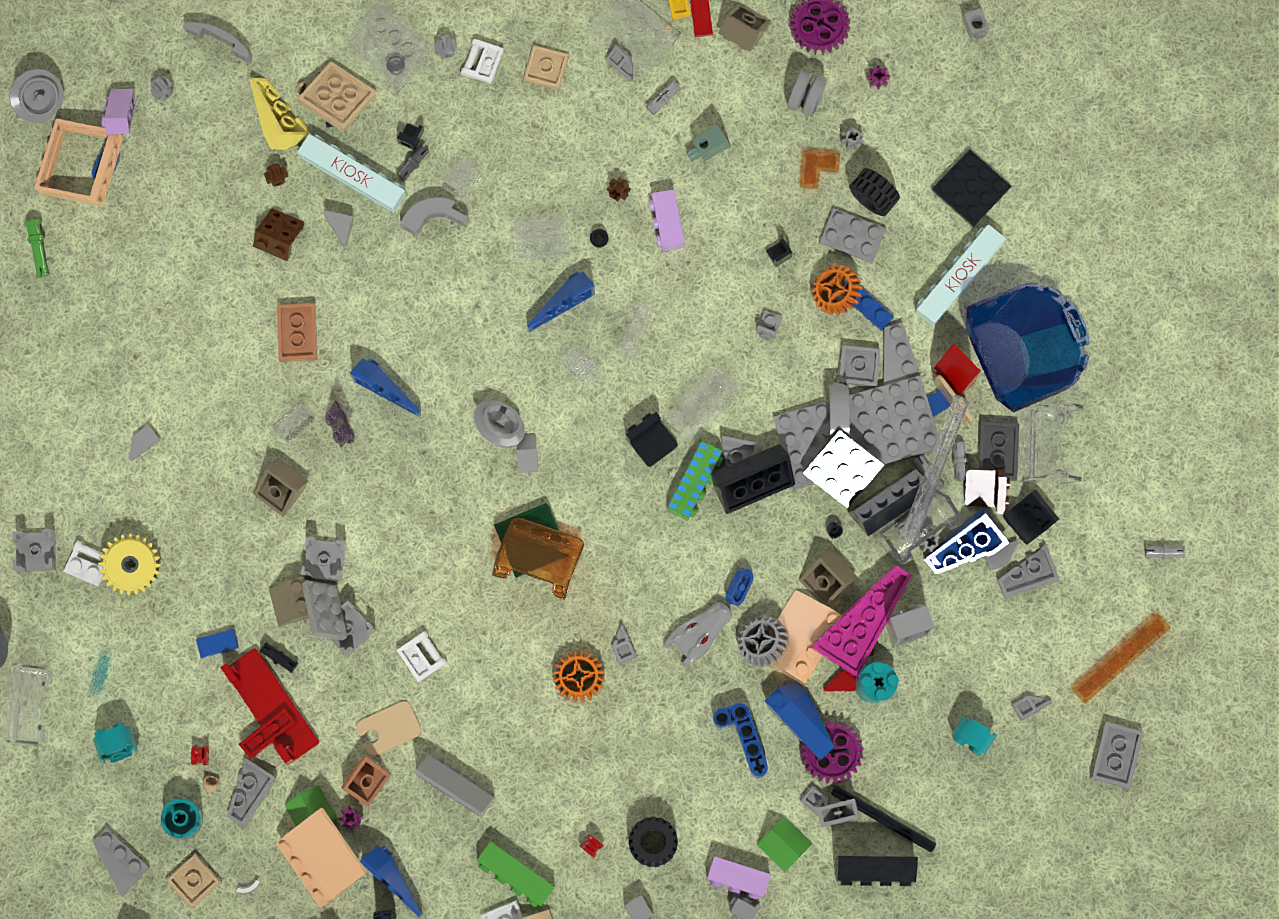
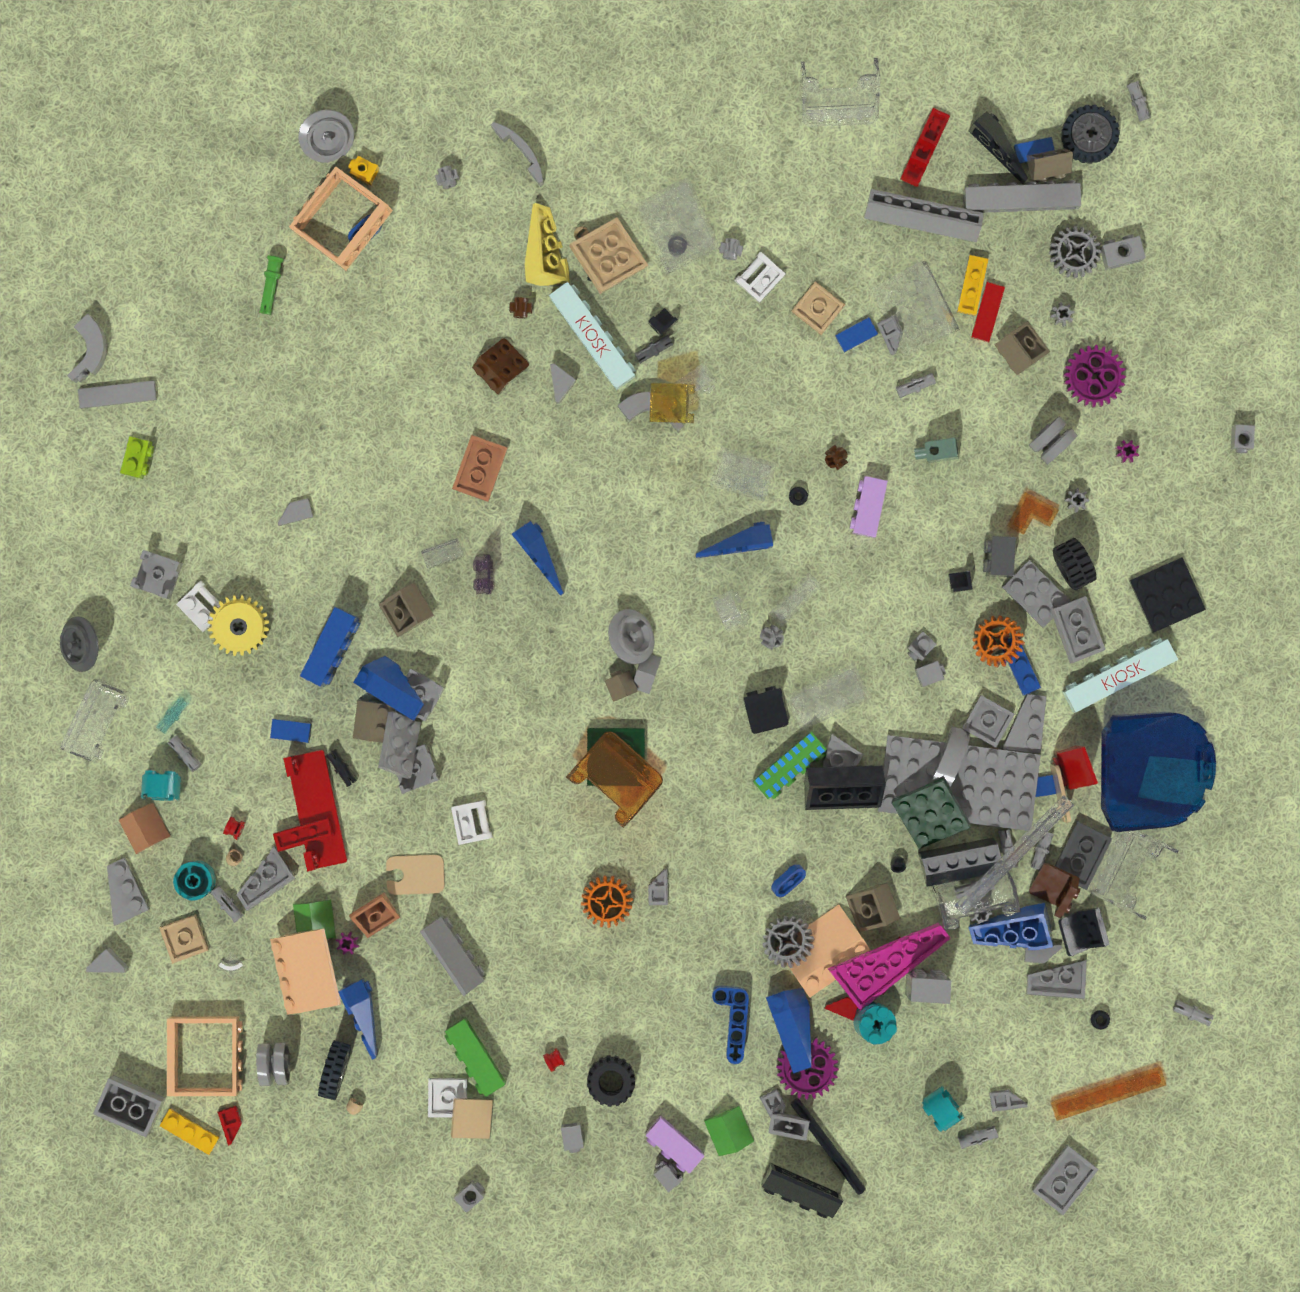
camera: 25 degrees right, 10 degrees up
(87, 117) = (368, 174): none -> yellow brick
(114, 792) = (144, 827): none -> nougat slope
(119, 111) = (397, 186): lavender brick -> none
(125, 705) = (184, 753): none -> light grey pin
(221, 830) = (235, 915): none -> light grey pin
(223, 547) = (329, 647): none -> blue brick
(293, 559) = (387, 683): none -> blue wedge
(447, 200) = (671, 402): none -> clear yellow panel
(508, 472) = (621, 685): none -> dark tan brick
(591, 76) = (856, 335): none -> blue tile
(628, 372) = (771, 637): none -> light grey gear
(697, 634) = (732, 907): light grey animal -> none
(787, 345) = (930, 673): none -> light grey brick
(805, 214) = (1000, 556): none -> dark grey brick
(904, 250) = (1077, 629): none -> light grey plate
(1019, 750) = (978, 1137): none -> light grey pin
(1087, 589) = (1106, 1019): none -> black plate

